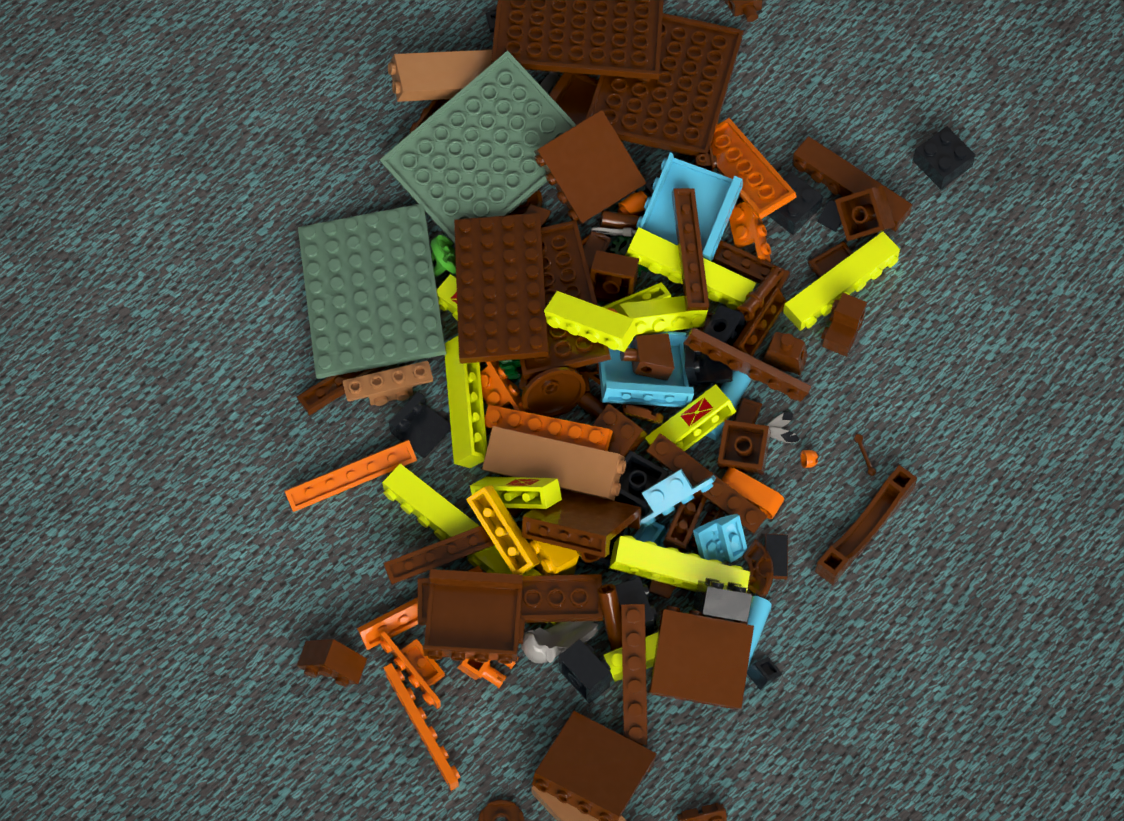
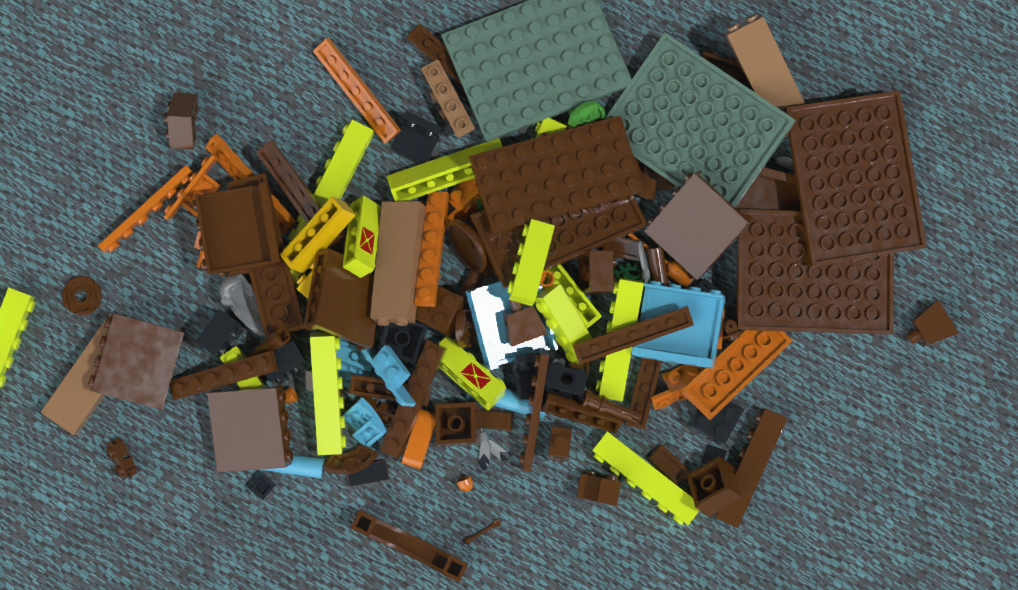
camera: 80 degrees right, 20 degrees up
(723, 600) = (299, 436): brick -> none
(944, 157) = (798, 548): black brick -> none

